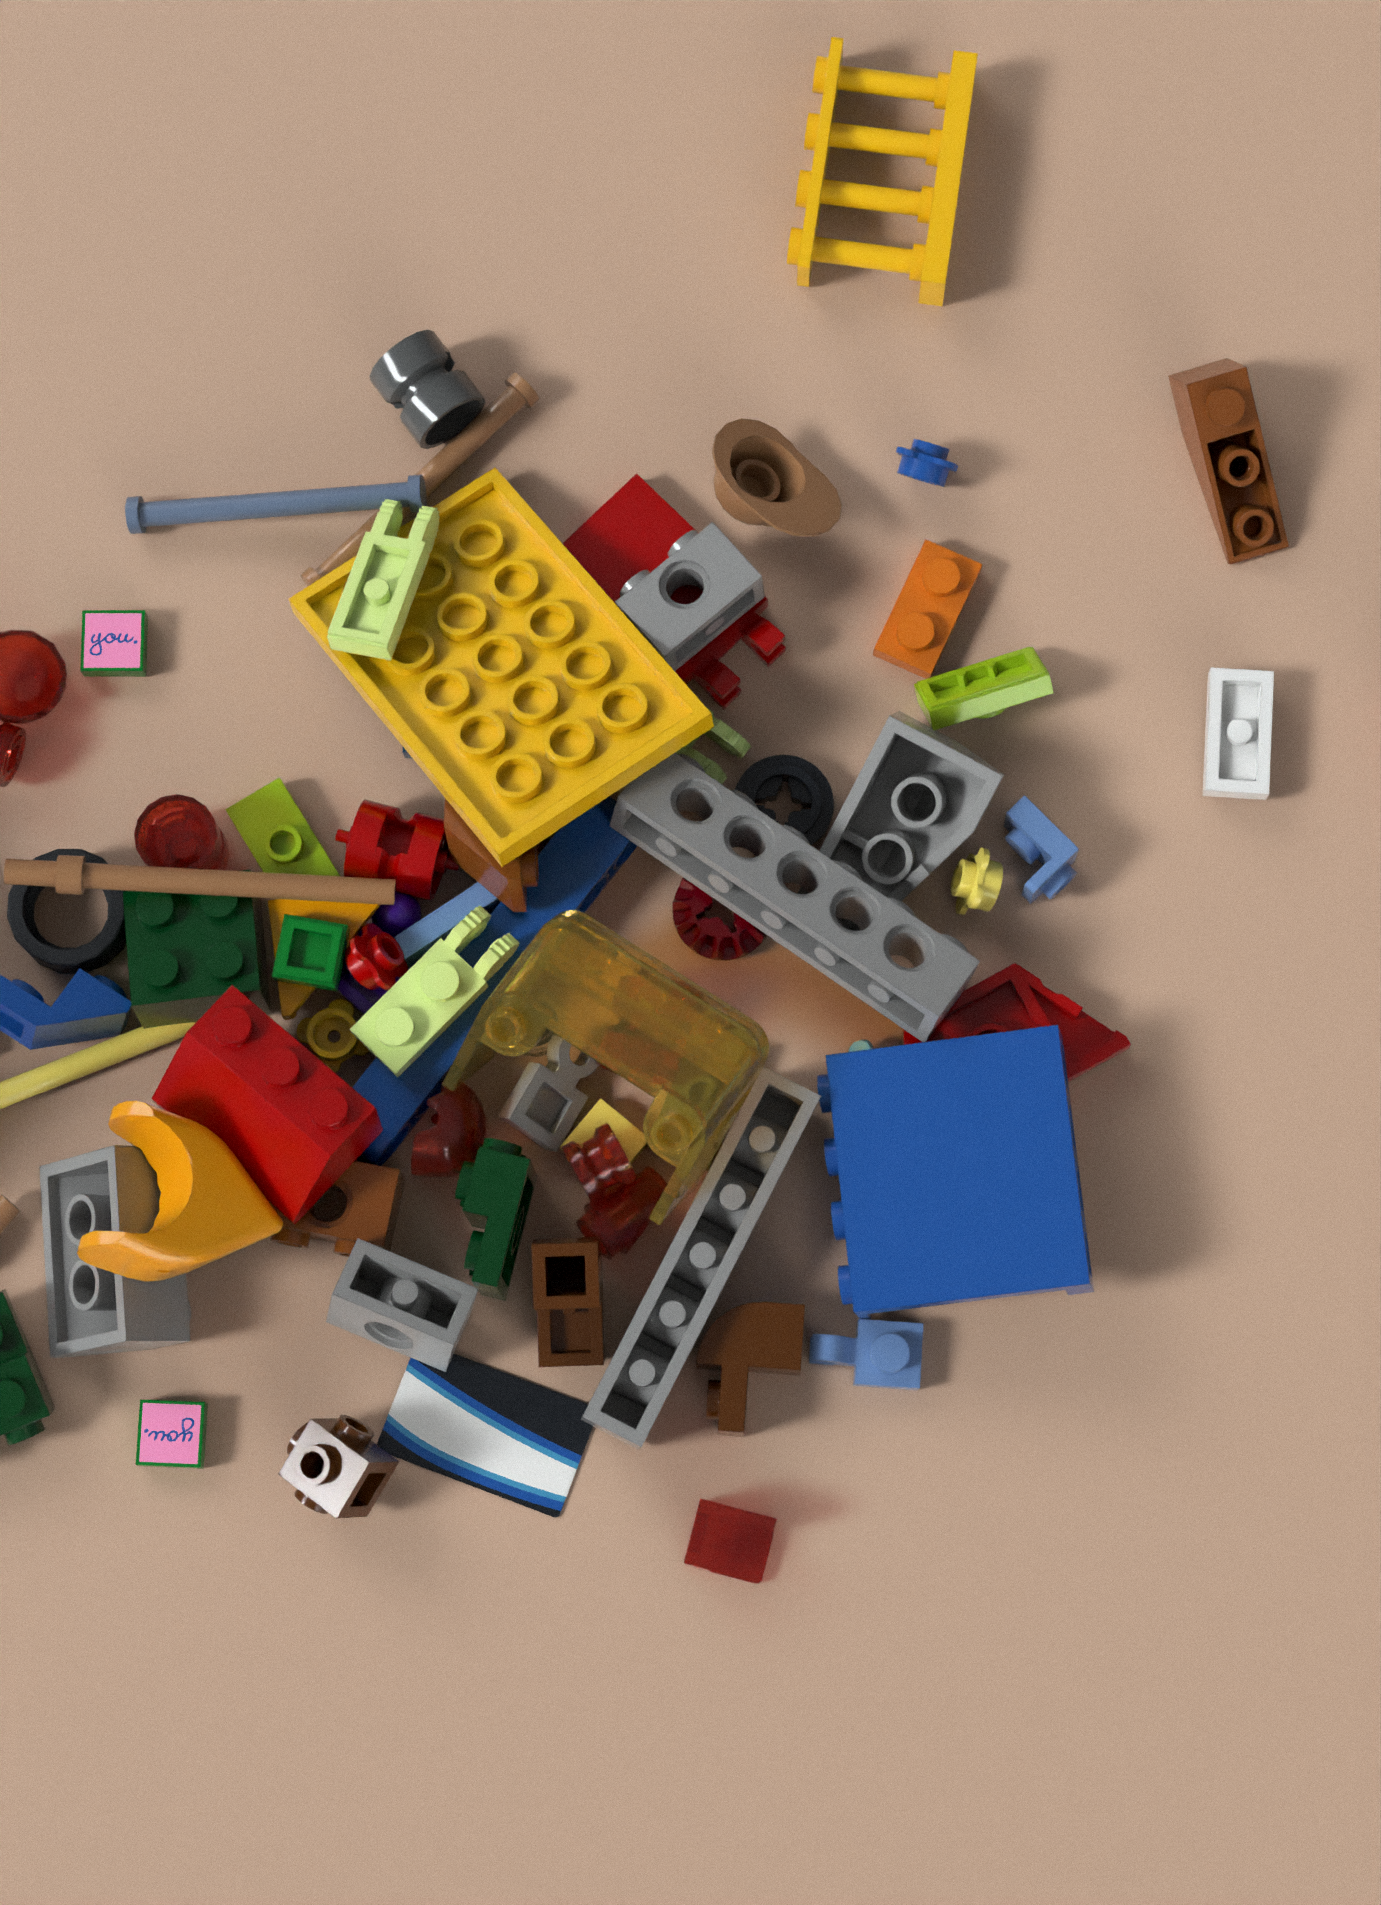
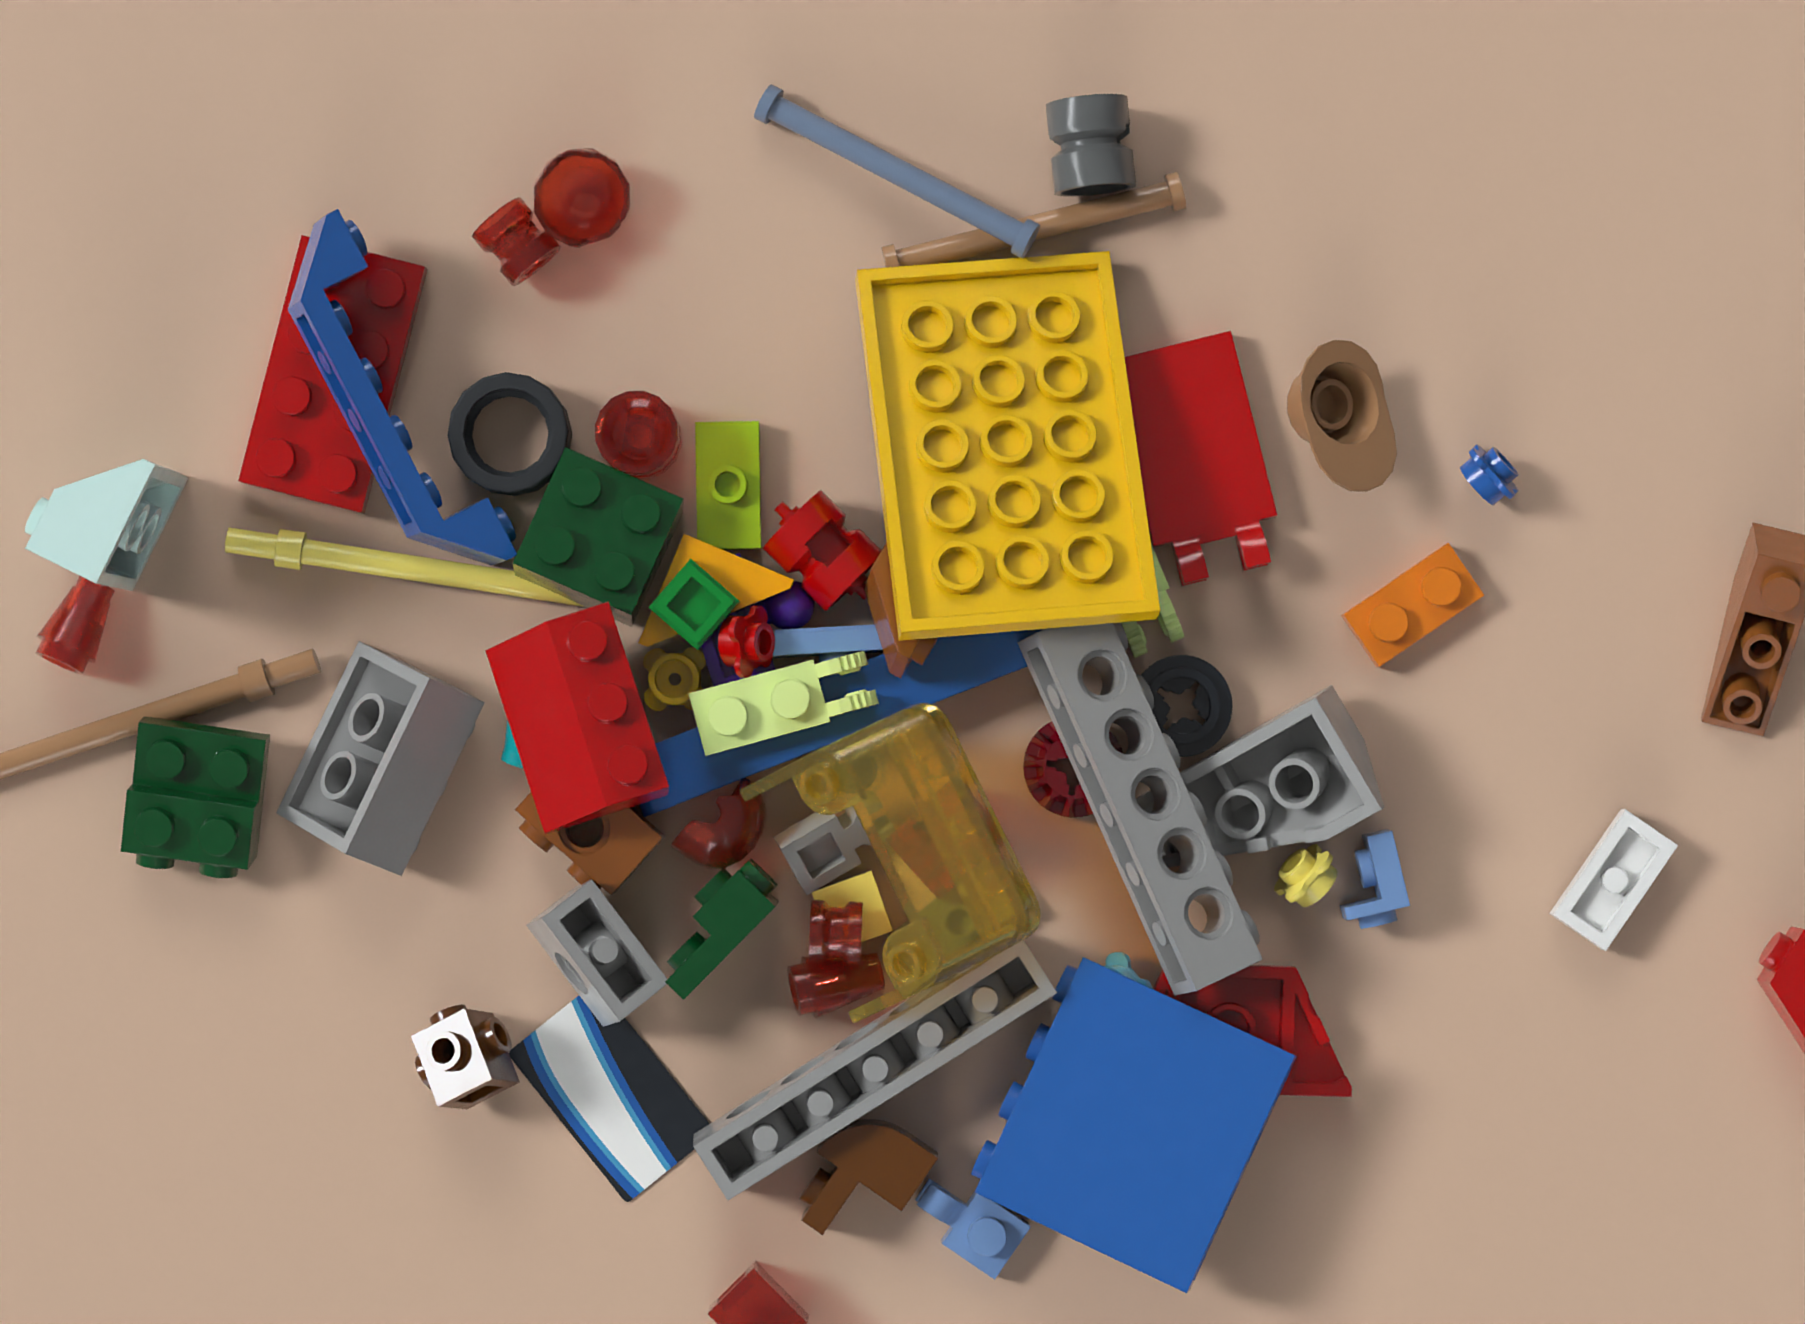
camera: 25 degrees right, 10 degrees up
(74, 875) = (527, 418): medium nougat bar -> none
(114, 643) = (683, 210): bright pink tile -> none
(171, 1434) = (342, 940): bright pink tile -> none
(204, 1202) = (479, 773): light orange animal -> none
(383, 583) = (946, 312): yellowish green hinge -> none
(568, 1301) = (740, 1033): reddish brown brick -> none
(699, 560) = (1247, 470): light grey brick -> none
(932, 205) = (1679, 190): yellow fence -> none
(983, 688) = (1416, 708): lime plate -> none

